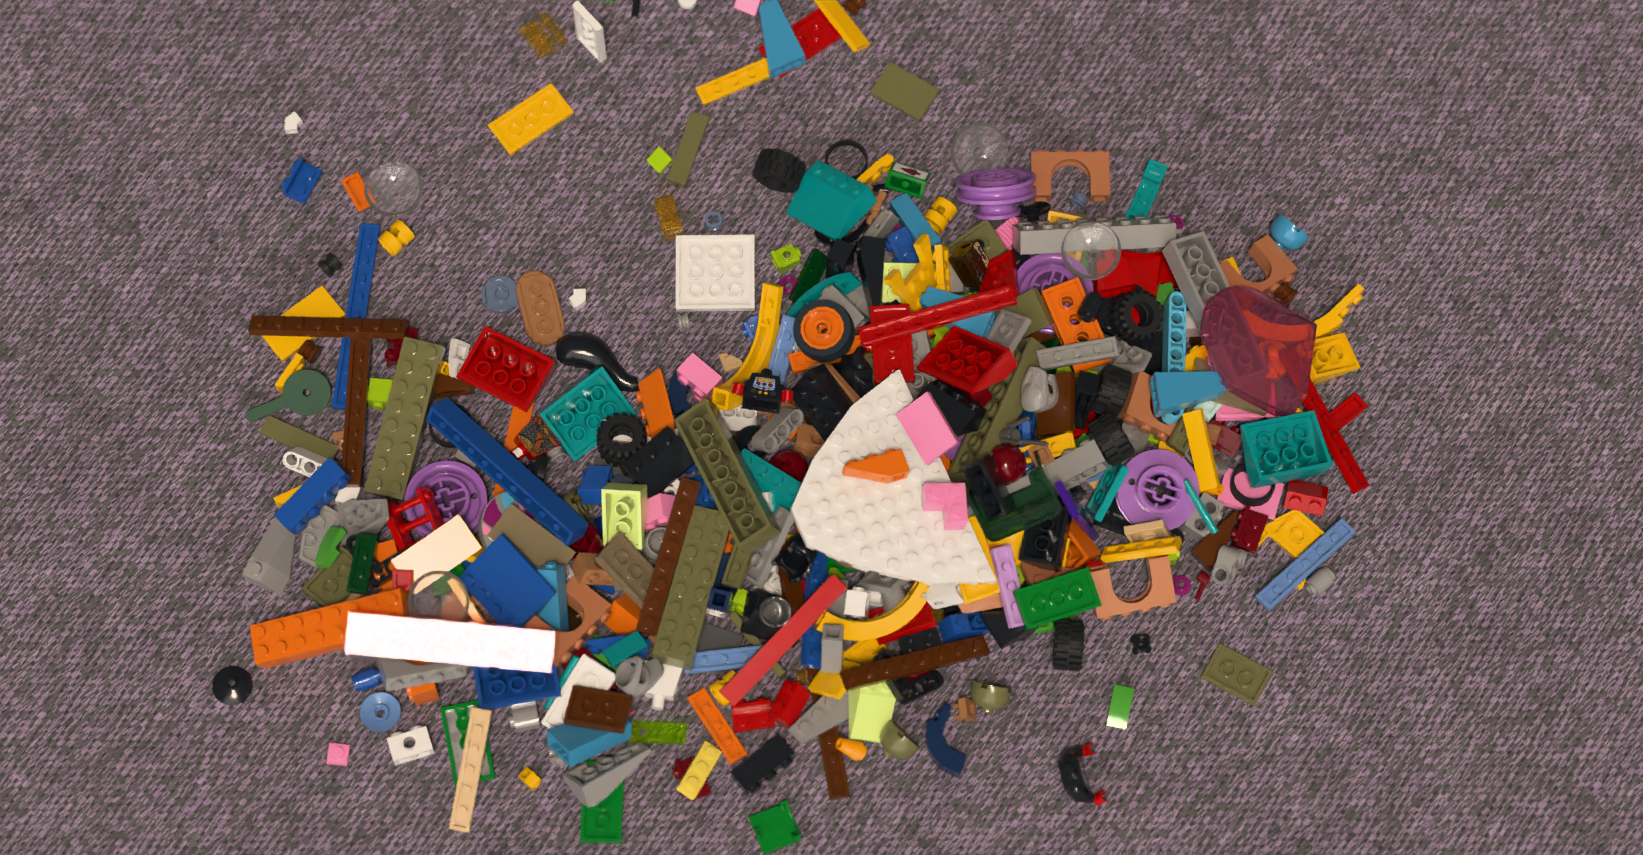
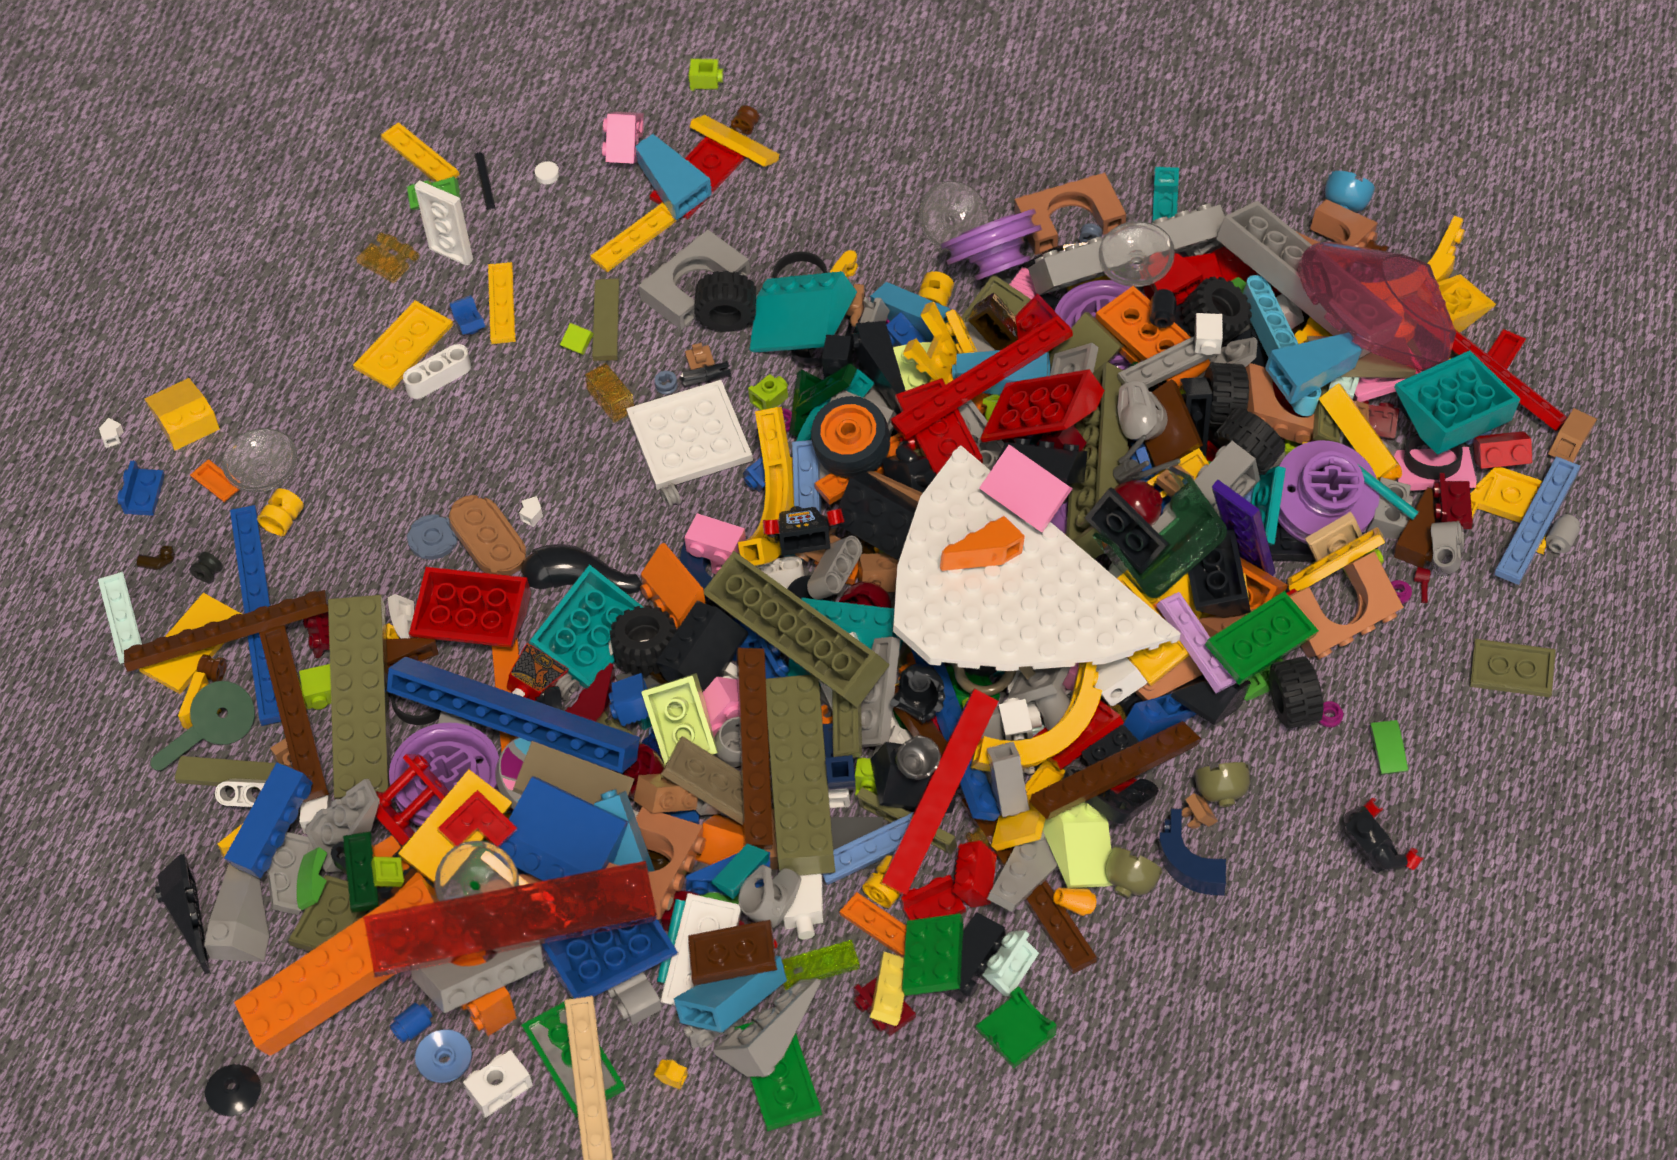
camera: 15 degrees left, 15 degrees down
(236, 528) = (180, 897): none -> black wedge
(258, 282) = (119, 613): none -> light aqua tile
(296, 247) = (164, 558): none -> dark brown arm
(338, 754) = (404, 1127): bright pink plate -> none
(349, 123) = (182, 413): none -> yellow slope
(379, 571) = (387, 871): none -> lime tile
(402, 578) = (421, 867): red tile -> none
(454, 552) = (477, 815): none -> red plate
(538, 150) = (437, 371): none -> white beam
(570, 474) = (595, 698): none -> dark red slope
(584, 112) = (466, 315): none -> blue bracket
(615, 106) = (501, 303): none -> yellow tile
(729, 362) = (750, 523): tan tile -> none
(736, 756) = (933, 954): none -> green plate
(745, 224) = (705, 374): none -> black axle
(746, 208) = (698, 356): none -> medium nougat tile
(781, 116) = (704, 253): none -> light grey arch
(789, 779) = (1010, 962): none -> light aqua bracket
(823, 279) = (825, 389): none -> dark green tile
(904, 92) = (839, 189): olive tile -> none
(907, 179) = (881, 269): green brick -> none
(949, 499) = (1086, 557): bright pink brick -> none
(1096, 666) = (1335, 709): none -> magenta plate
(1113, 343) = (1208, 333): none -> white brick
(1144, 639) = (1380, 664): black plate -> none
(1364, 502) = (1572, 435): none -> medium nougat slope

